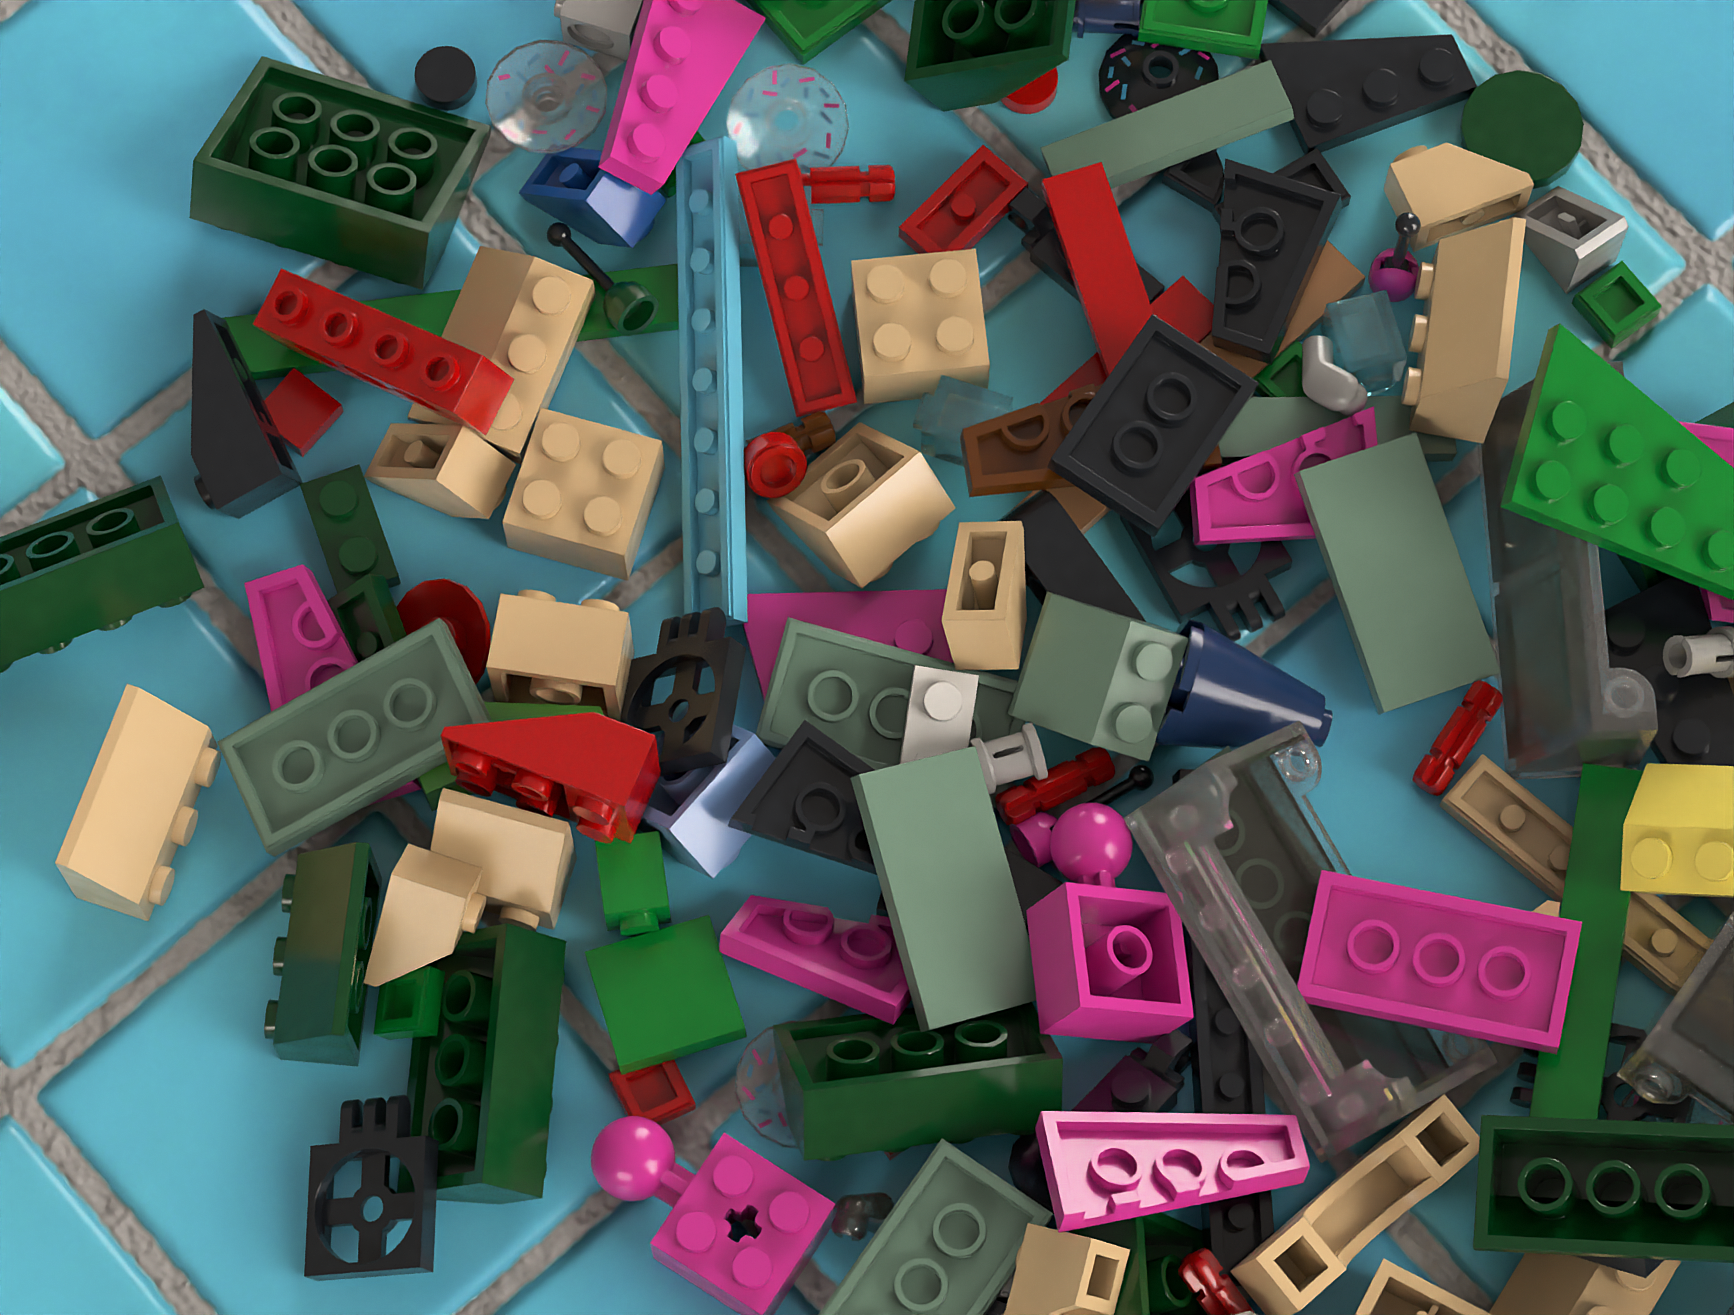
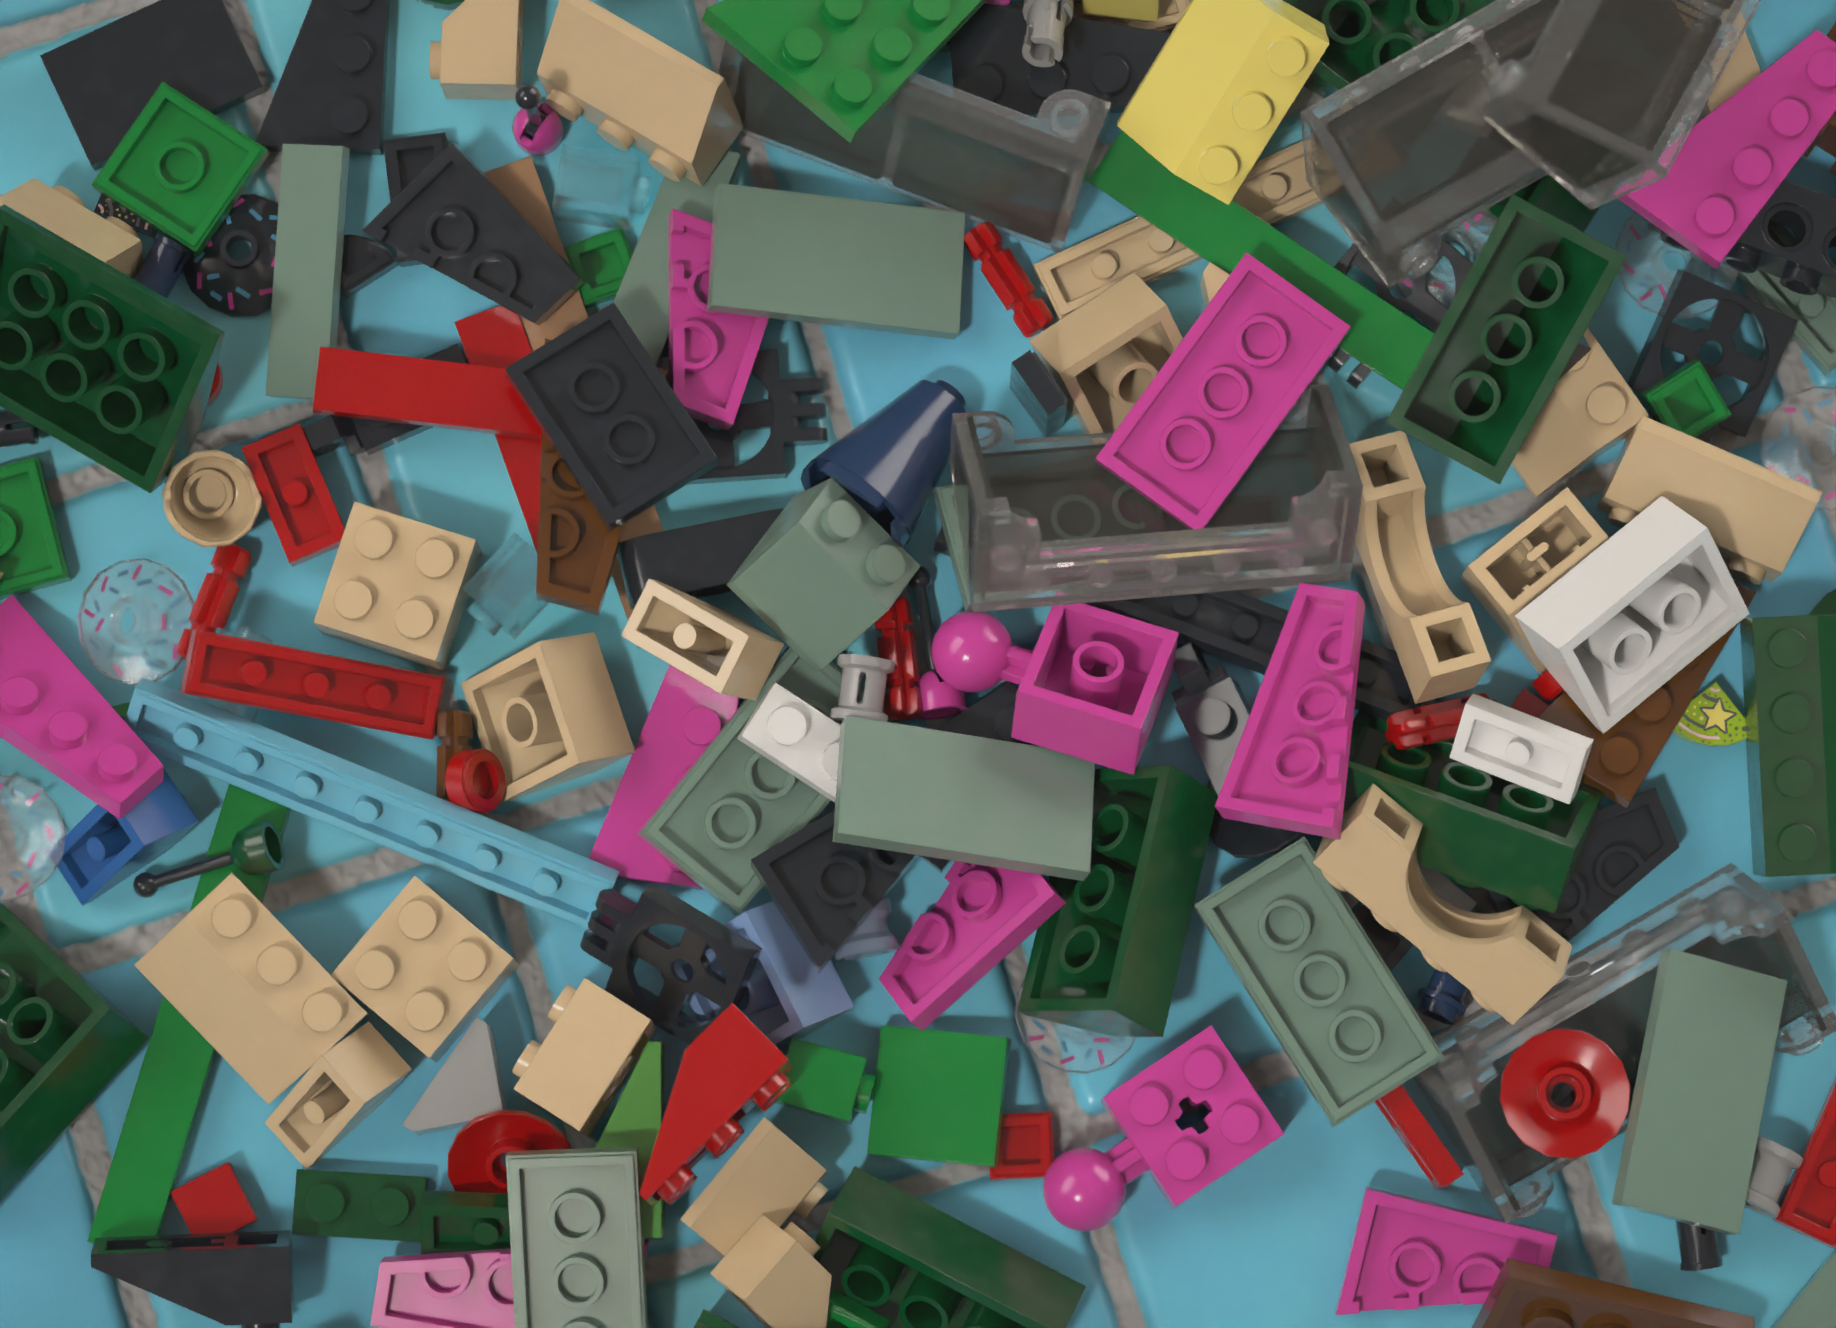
camera: 65 degrees left, 10 degrees up
(384, 351) = (213, 1100): red brick -> none
(495, 566) = (463, 1087): none -> light grey slope
(787, 866) = (871, 937): none -> sand blue wheel
(860, 1213) = (1221, 1008): clear smoke arm -> none
(925, 137) = (211, 498): none -> tan hair
(1327, 382) = (625, 240): light grey arm -> none
(1360, 799) = (1038, 393): none -> black tile
(1431, 845) = (1109, 352): none -> tan slope

